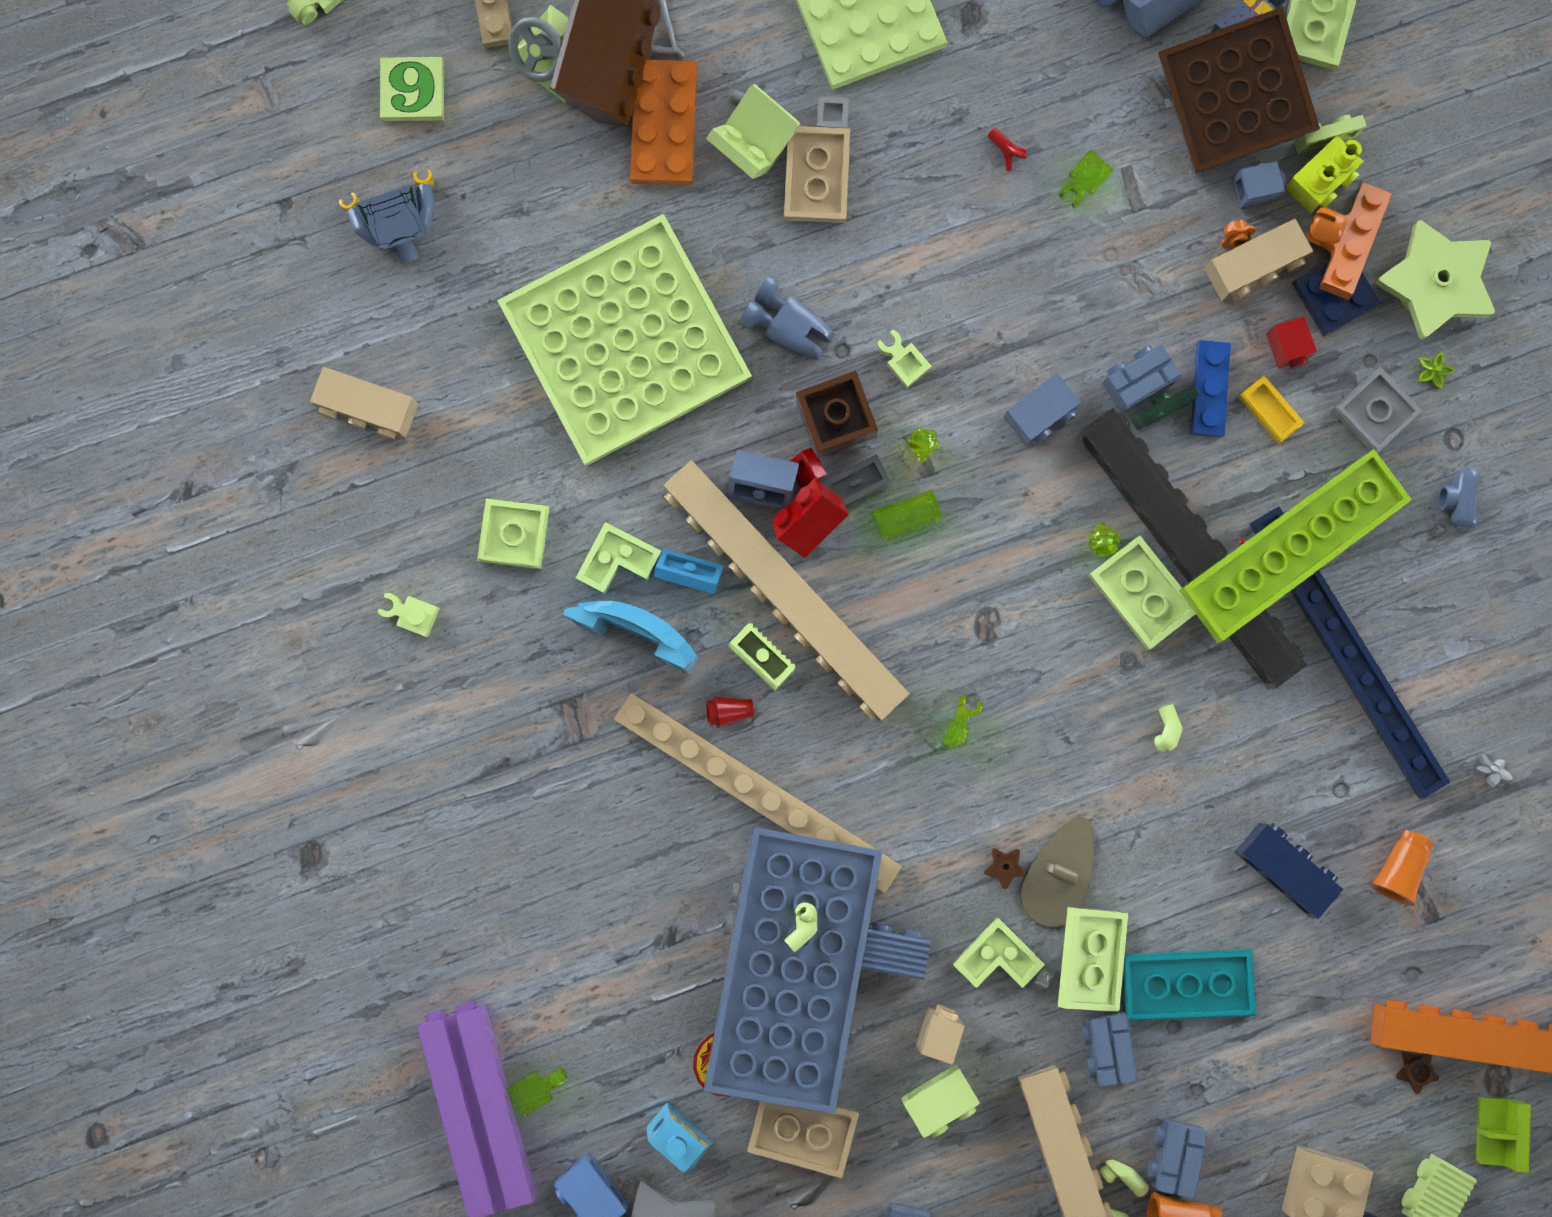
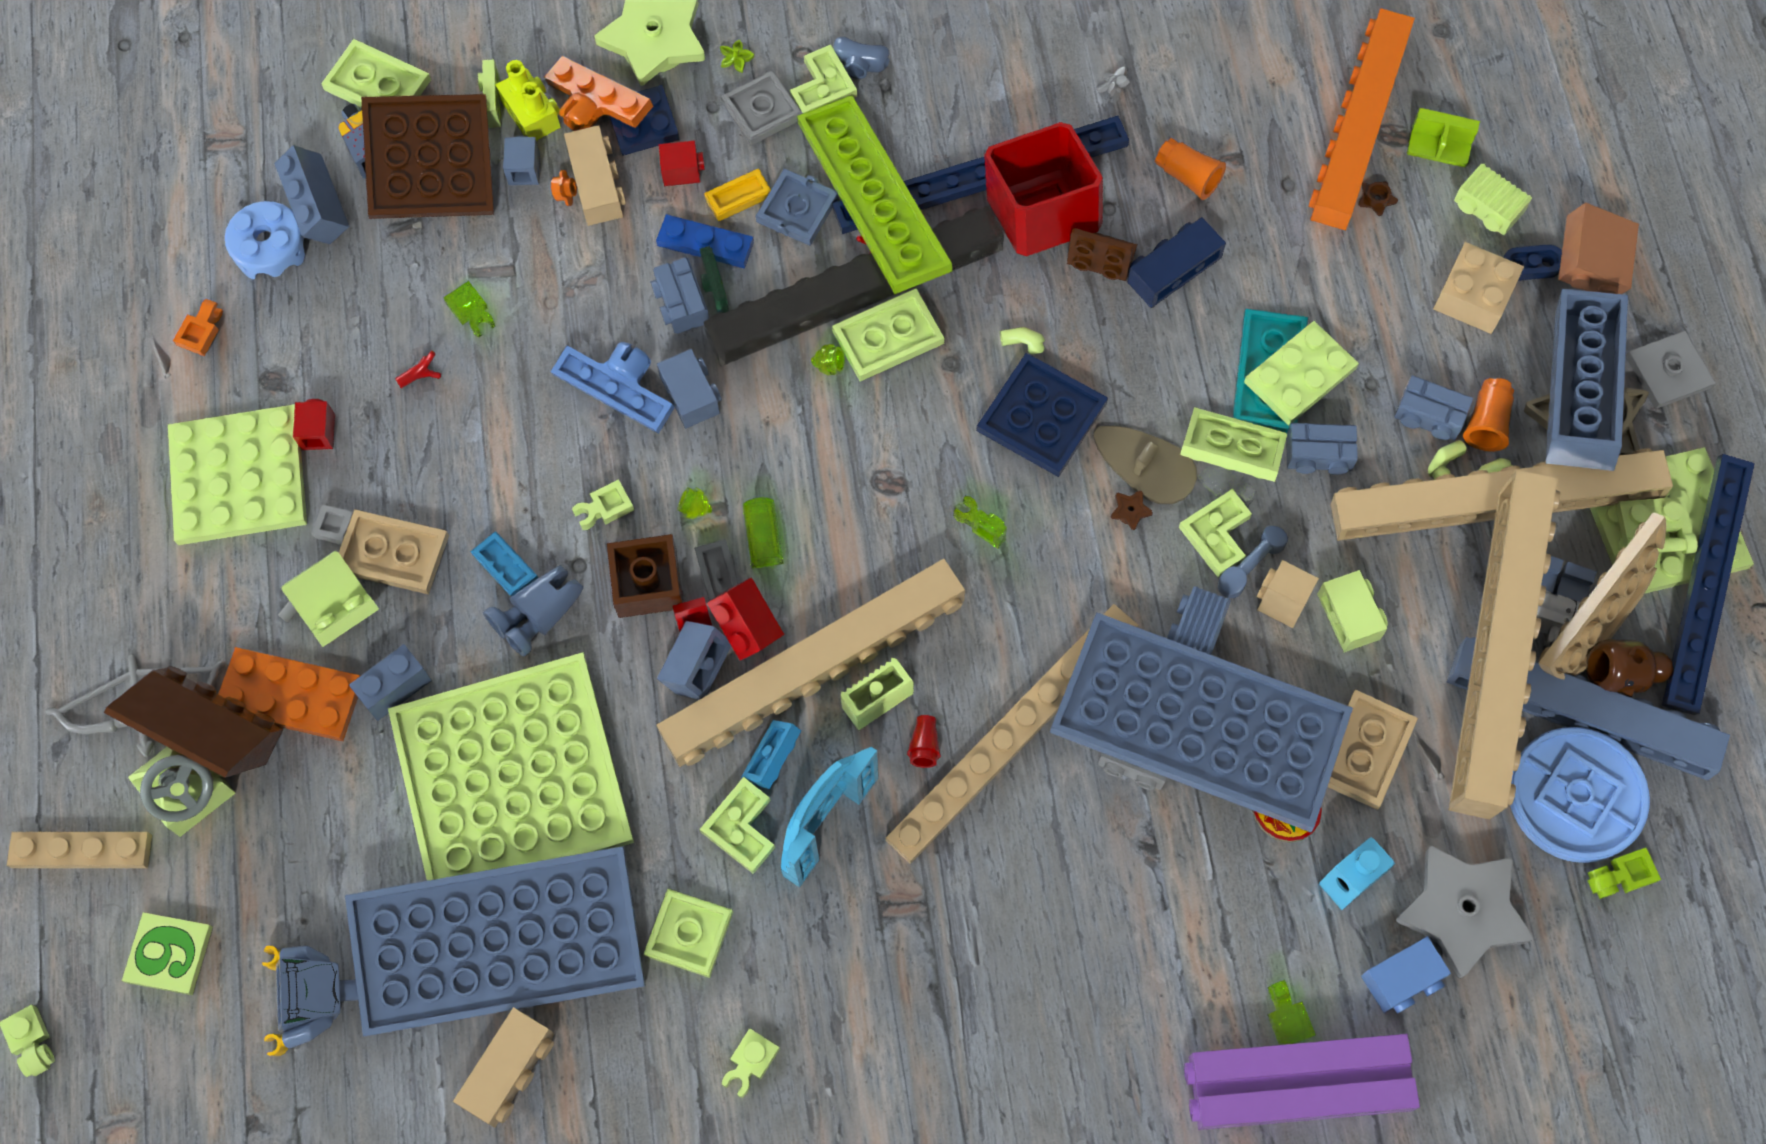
camera: 80 degrees left, 15 degrees down
(470, 366) = (494, 941): none -> sand blue plate
(688, 209) = (390, 682): none -> sand blue brick
(806, 926) = (1162, 695): yellowish green arm -> none
(825, 281) = (503, 564): none -> dark azure plate
(929, 66) = (314, 425): none -> red brick
(950, 980) = (1234, 578): none -> sand blue bar
(1032, 339) = (616, 383): none -> medium blue plate
(1088, 762) = (1042, 414): none -> dark blue plate
(1188, 1017) = (1301, 373): none -> yellowish green plate
(1268, 471) = (797, 206): none -> sand blue plate
(1283, 791) = (1101, 254): none -> reddish brown bracket
(1355, 713) = (1043, 188): none -> red plate
(1421, 475) = (829, 83): none -> yellowish green plate

